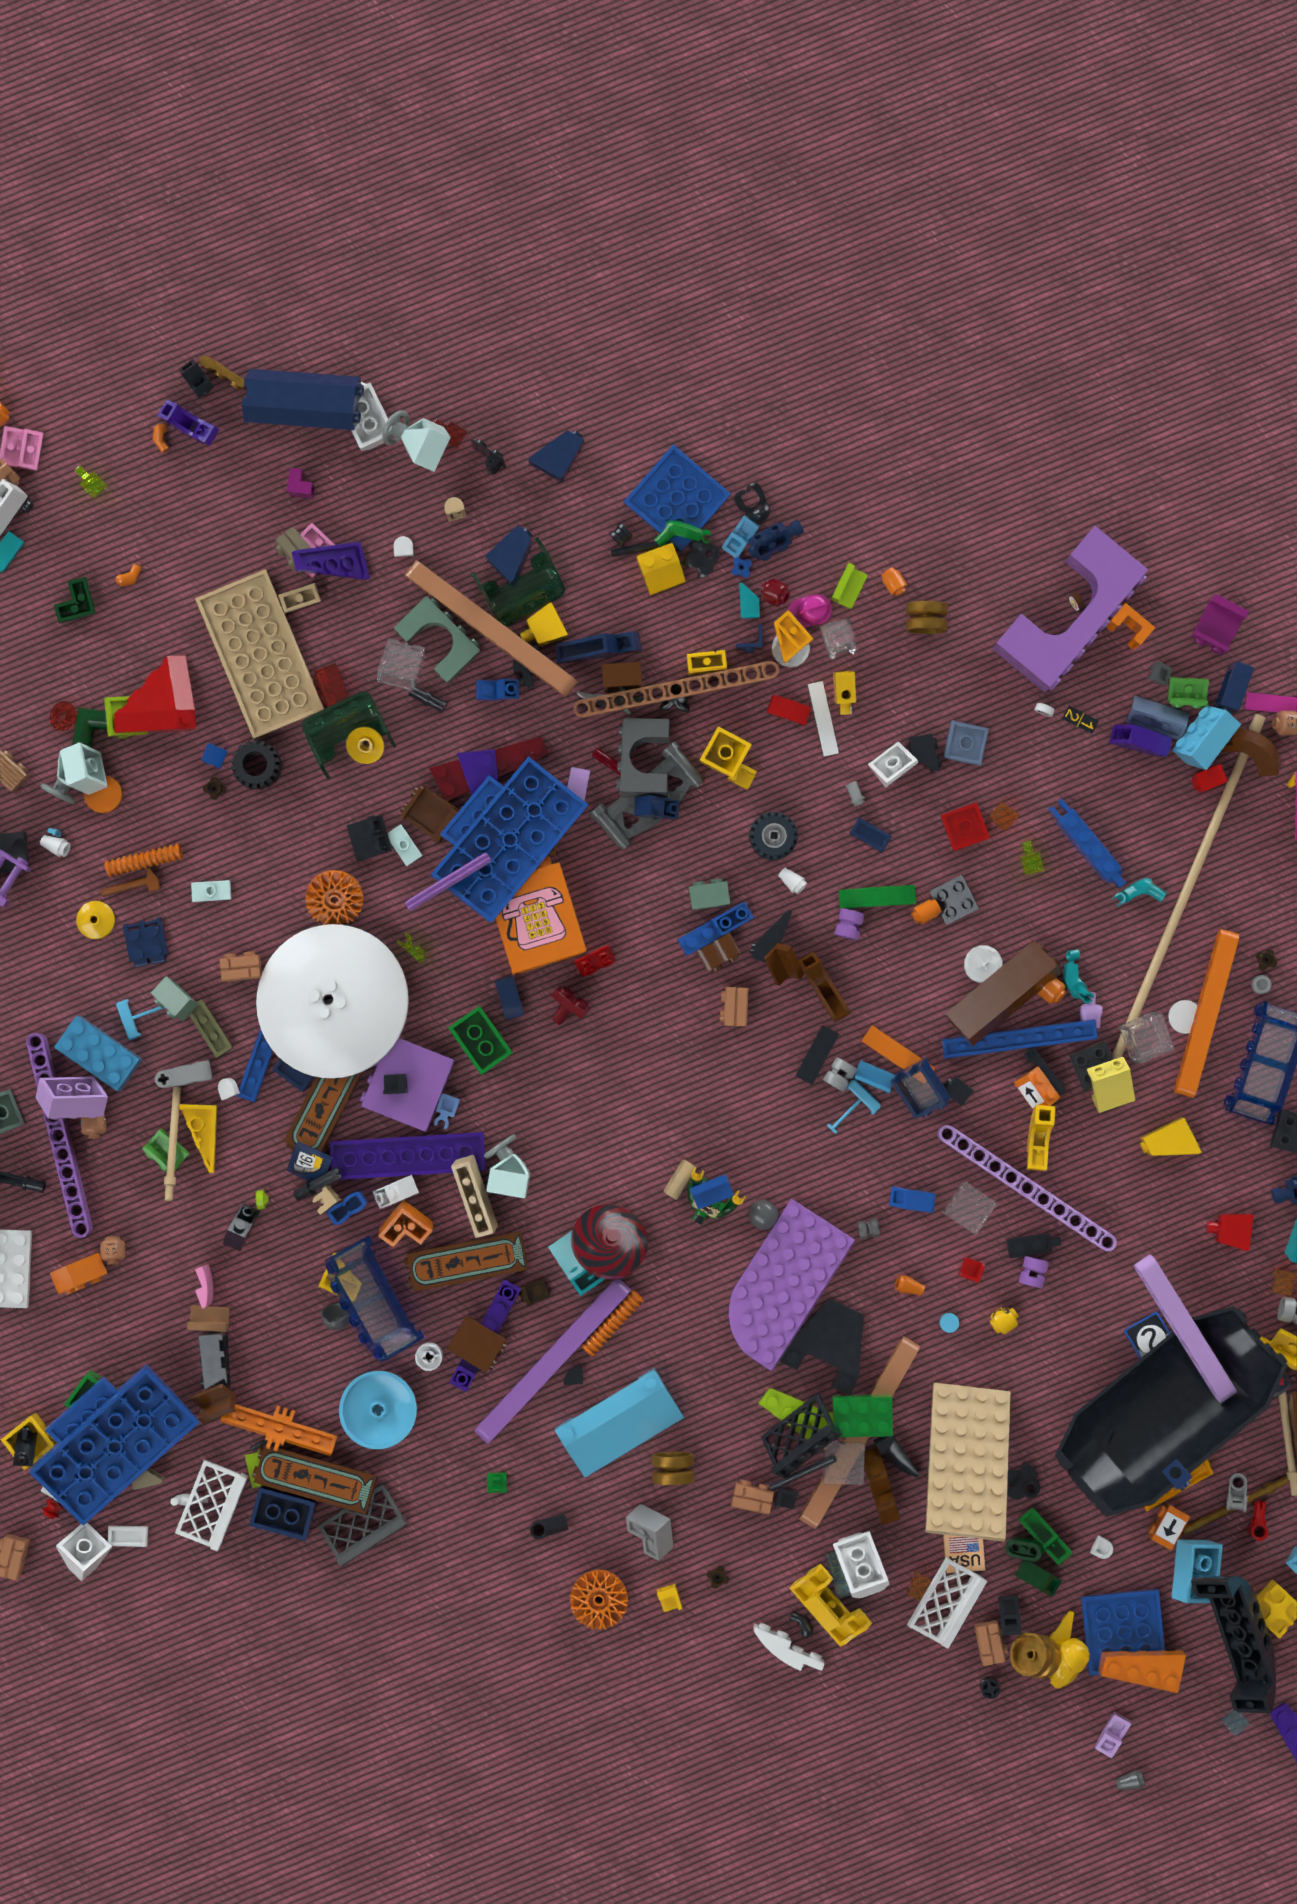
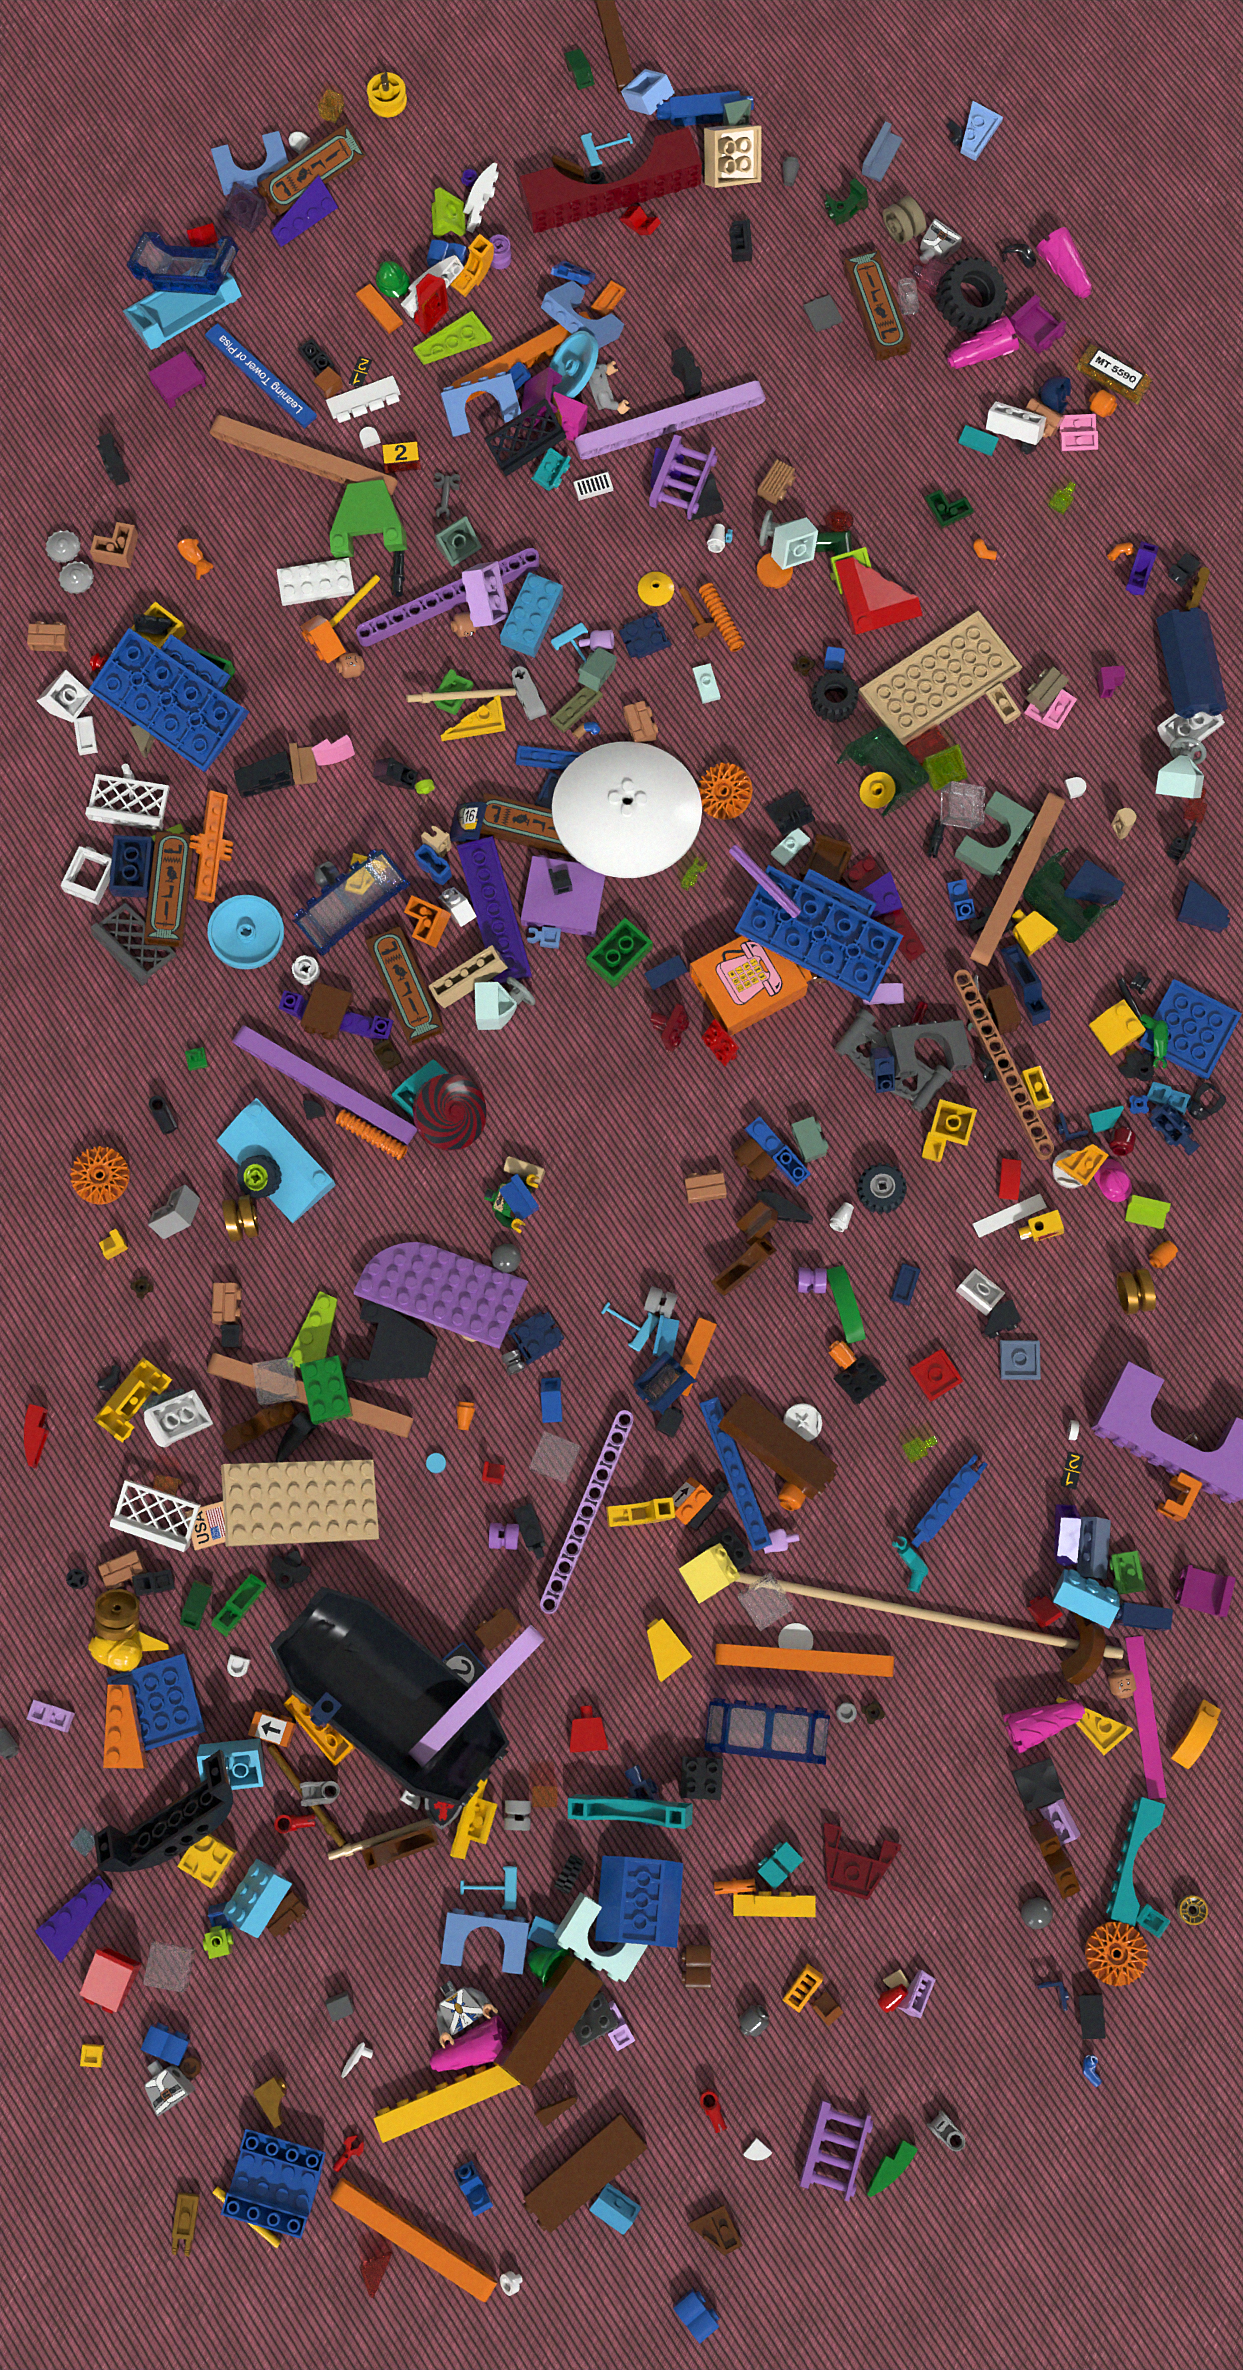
camera: 80 degrees right, 10 degrees down
(41, 1234) = (354, 600): none -> yellow bar
(141, 990) = (601, 639): none -> lavender piece
(214, 1402) = (225, 783): reddish brown panel -> none
(227, 1088) = (523, 735): white tile -> none
(232, 1021) = (586, 727): none -> arm
(272, 1572) = (68, 882): none -> white window
(312, 1187) = (446, 826): black axle -> none
(334, 560) = (1047, 726): dark purple wing -> none
(357, 672) = (945, 767): none -> clear neon green slope
(633, 1442) = (259, 1176): none -> black wheel
(779, 1645) = (84, 1359): white slope -> none
(803, 1472) = (259, 1342): black bar -> none
(805, 1450) = (285, 1340): black fence -> none
(817, 1054) = (675, 1277): black tile -> none
(838, 638) = (1094, 1210): clear piece -> none
(841, 1706) = (34, 1434): none -> red slope
(847, 1200) = (537, 1336): none -> dark blue plate
(855, 794) = (938, 1263): light grey pin -> none
(1003, 816) = (955, 1411): clear orange panel -> none
(1004, 1320) = (449, 1516): yellow head -> none
(1025, 1549) = (222, 1588): dark green plate -> none
(1071, 978) = (805, 1515): teal arm -> none
(1119, 1295) = (497, 1629): none -> dark orange brick
(1160, 673) = (1139, 1540): dark grey tile -> none

